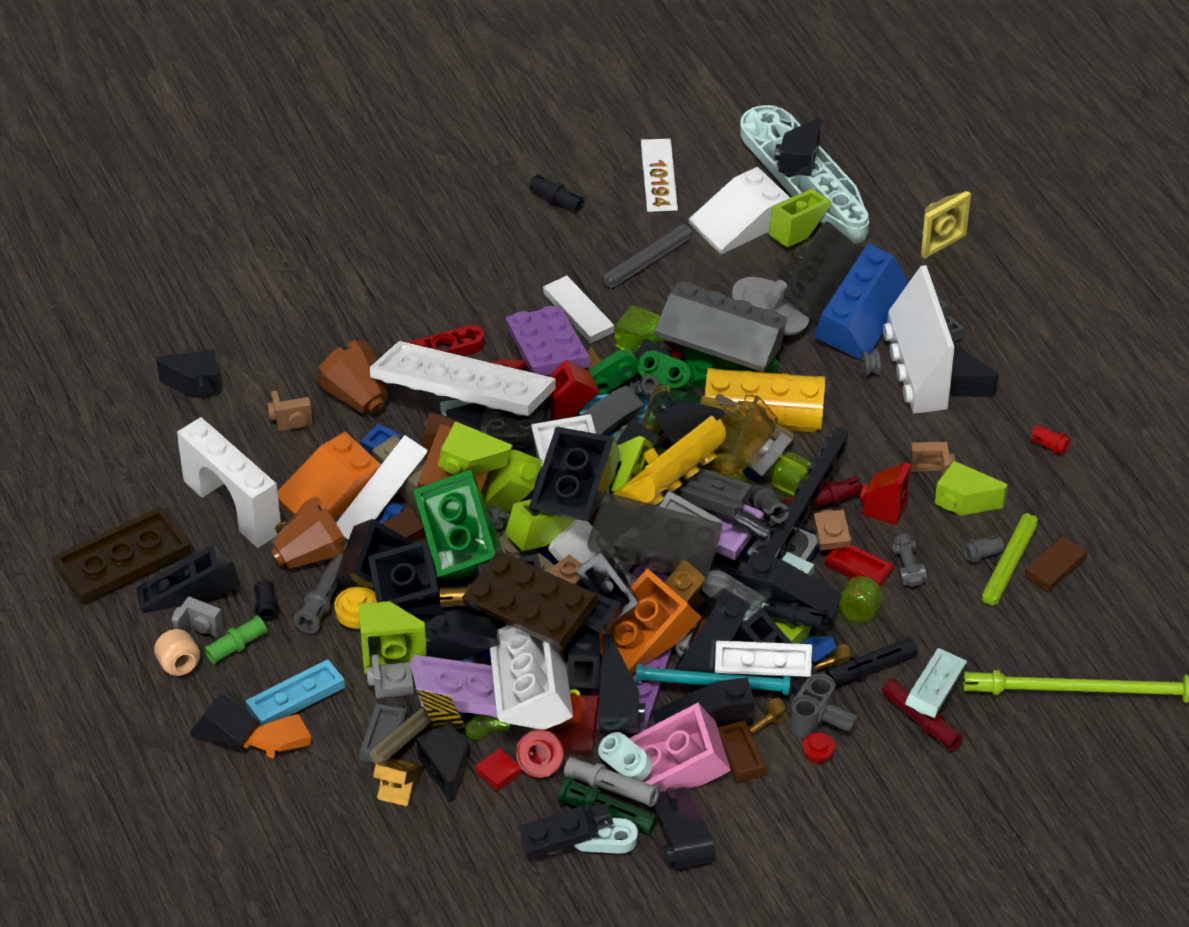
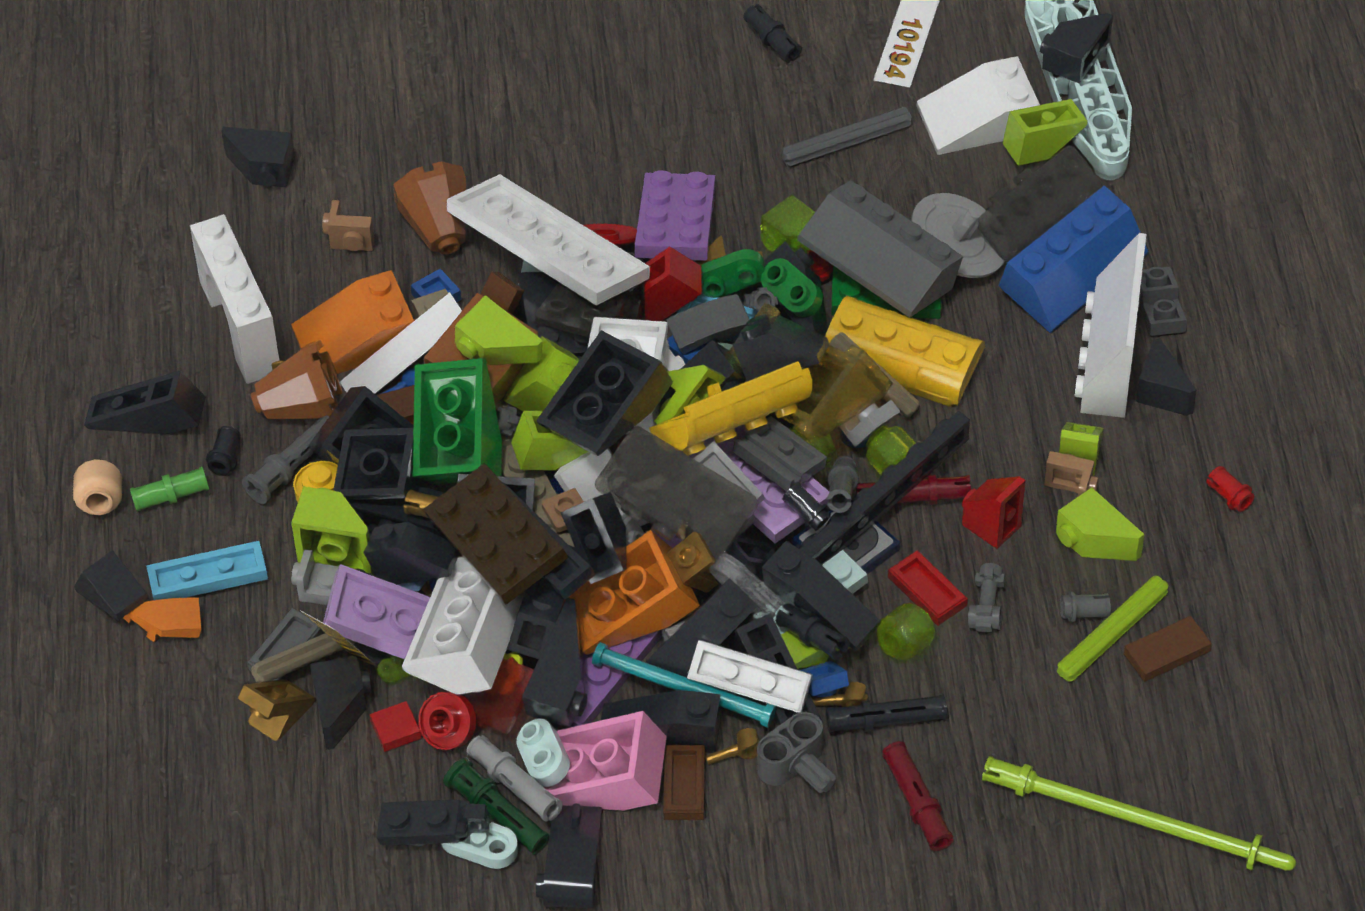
camera: 20 degrees right, 5 degrees up
(121, 554) = (89, 354): dark brown plate -> none
(199, 616) = (139, 450): light grey bracket -> none
(462, 335) = (571, 182): red beam -> none
(579, 309) = (736, 183): white tile -> none
(818, 747) = (776, 802): red plate -> none
(831, 529) = (908, 535): medium nougat bracket -> none
(870, 362) = (1052, 336): dark grey bush -> none
(927, 431) = (1081, 441): none -> lime slope
(935, 683) = (946, 761): light aqua plate -> none
(945, 222) = (1216, 181): light yellow slope -> none

